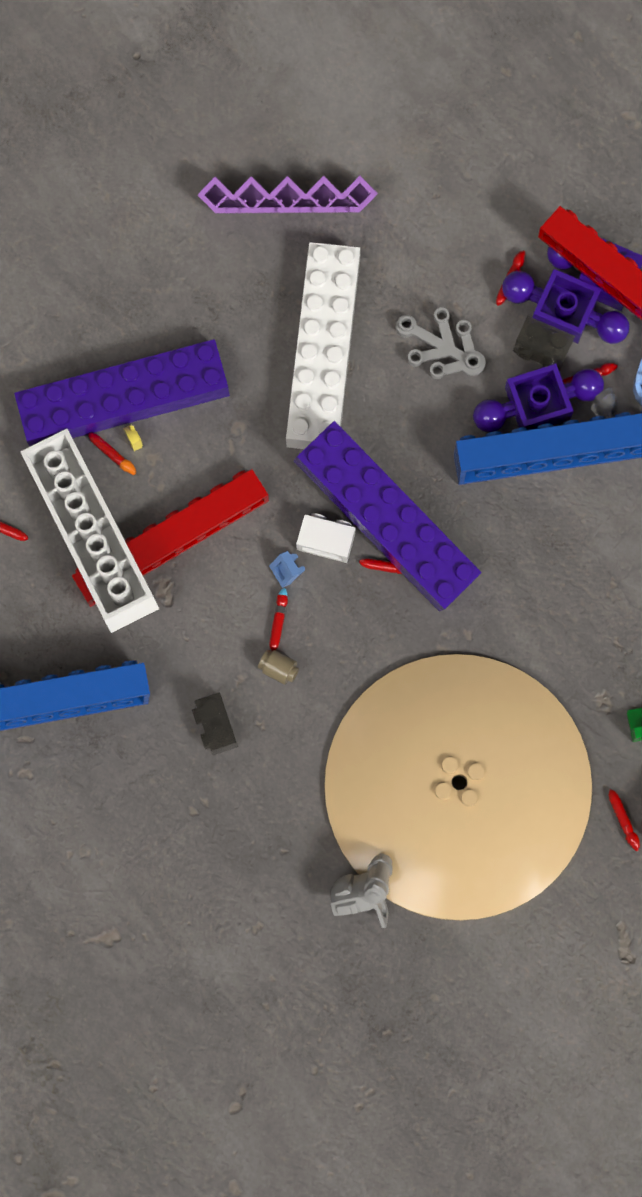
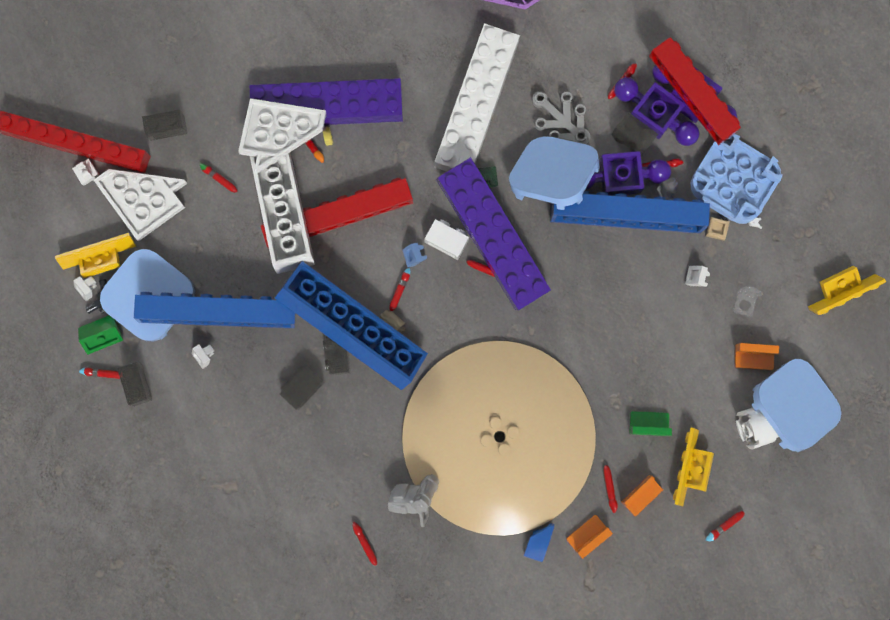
camera: 10 degrees right, 5 degrees up
(32, 767) = (202, 355): none -> white tile
(67, 443) = (277, 129): none -> white wing
(177, 779) = (301, 387): none -> clear smoke brick
(227, 679) = (351, 325): none -> blue brick
(298, 955) = (364, 543): none -> red piece
(365, 441) = (489, 175): none -> clear green plate
(448, 414) = (554, 171): none -> light blue tile
(546, 914) = (539, 543): none -> blue slope
(610, 889) = (589, 536): none -> orange panel

